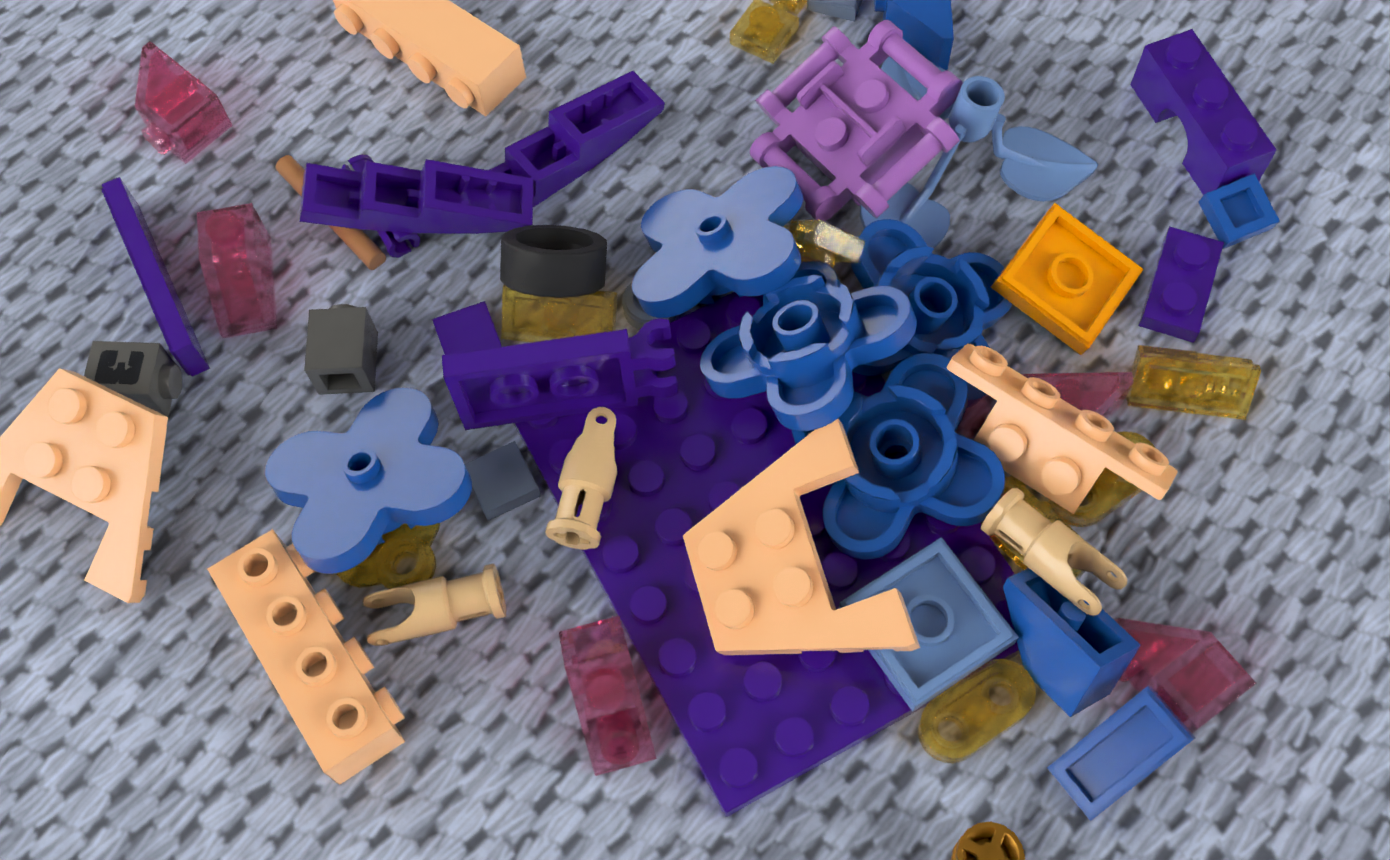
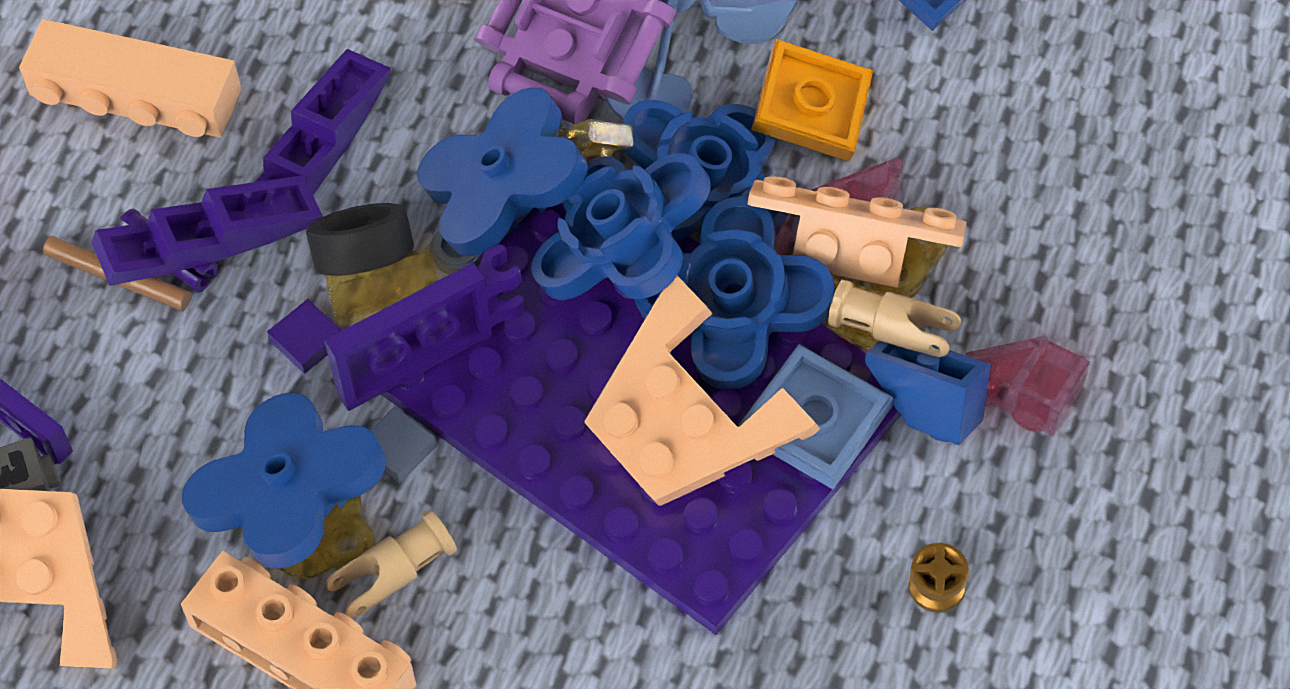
camera: 25 degrees left, 5 degrees down
(237, 269) = (62, 352): clear pink slope -> none
(341, 350) = (198, 386): dark grey brick -> none
(586, 481) = (482, 411): tan piece -> none
(606, 695) = (576, 574): clear pink slope -> none
(974, 712) = (880, 474): clear yellow plate -> none
(1120, 752) = (1008, 456): blue tile -> none
(1181, 284) = (909, 72): dark purple plate -> none
(1192, 382) = (950, 149): clear yellow plate -> none

